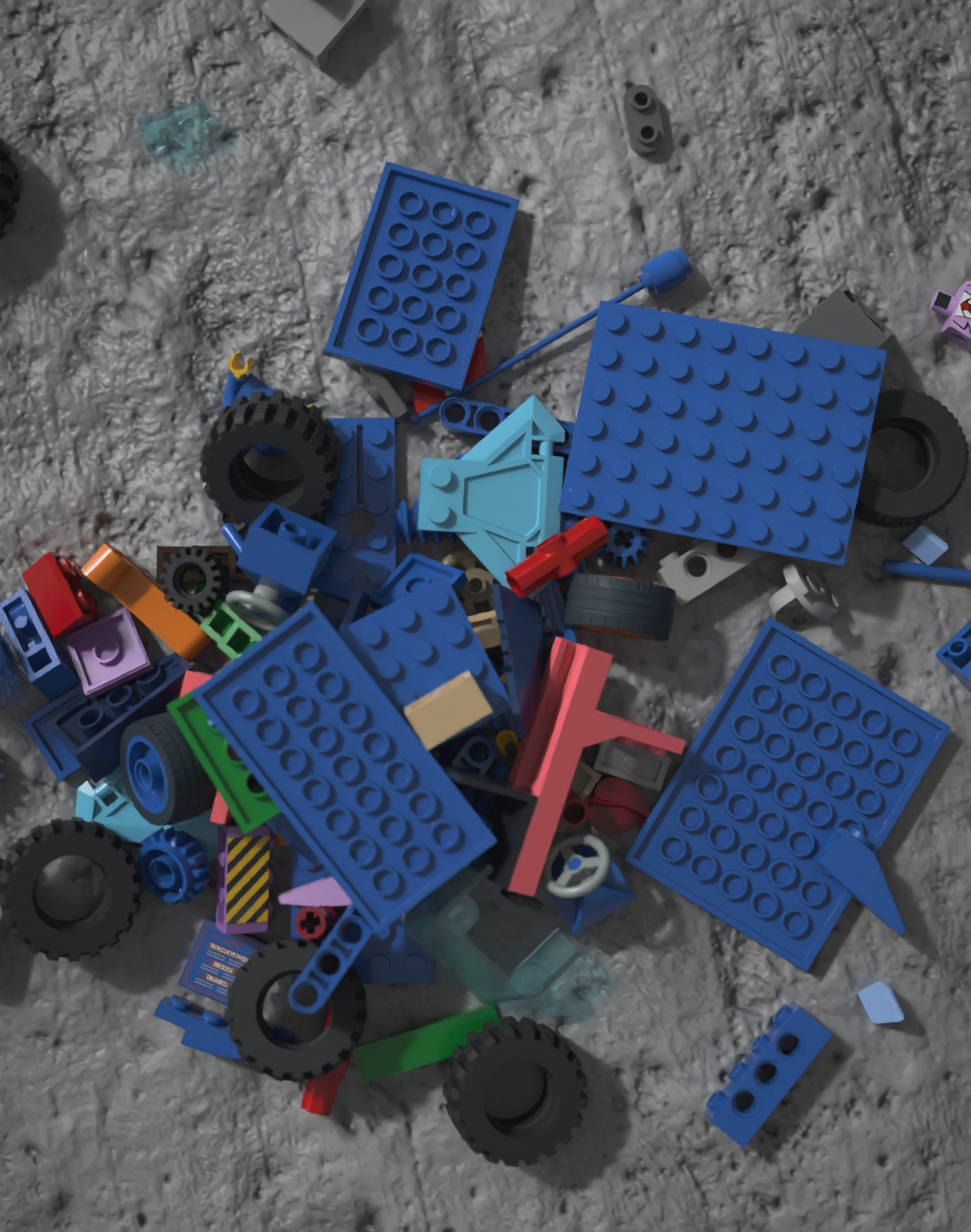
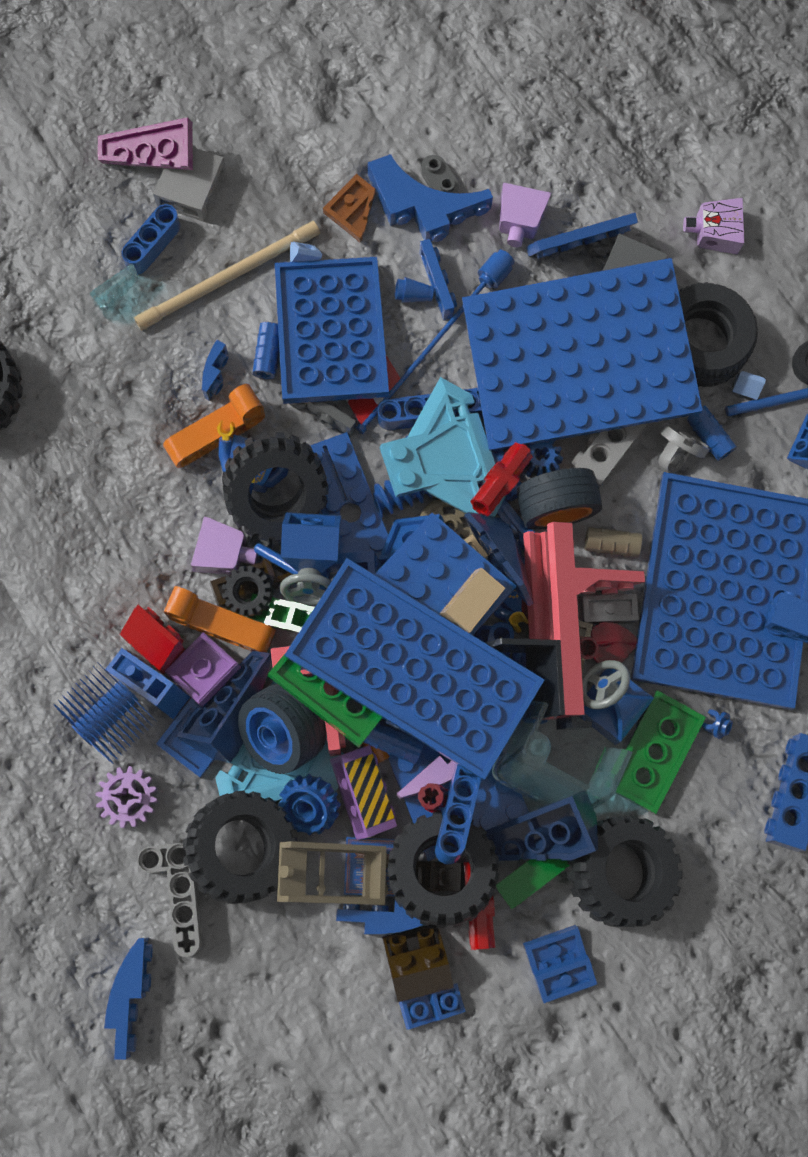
camera: 25 degrees left, 10 degrees down
(118, 947) = (293, 873): none -> dark tan door
(183, 511) = (220, 549): none -> lavender torso
(207, 359) = (203, 436): none -> orange beam
(215, 174) = (158, 312): none -> tan piece
(230, 1100) = (417, 962): none -> dark brown slope
(231, 1150) = (432, 1007): none -> blue slope
(248, 56) = (151, 228): none -> blue beam
(251, 288) = (212, 378): none -> blue slope
(278, 1006) = (440, 876): none -> dark brown slope
(332, 275) = (266, 351): none -> blue axle
(400, 1160) = (559, 963): none -> blue slope
(429, 160) = (304, 252): none -> light blue slope
(445, 1012) = (554, 831): none -> dark blue wedge
(514, 119) = (352, 207): none -> dark orange wing
(548, 262) = (413, 291): none -> blue cone
(586, 258) = (438, 279): none -> blue plate
(616, 162) = (432, 209): none -> blue arch
(640, 960) = (674, 747): none -> green plate
(670, 681) = (613, 542): none -> dark tan axle
(709, 957) = (721, 726): none -> blue plate
(728, 207) = (521, 212): none -> lavender torso
(806, 270) = (588, 234): none -> blue plate
(852, 590) = (712, 434): none -> blue axle

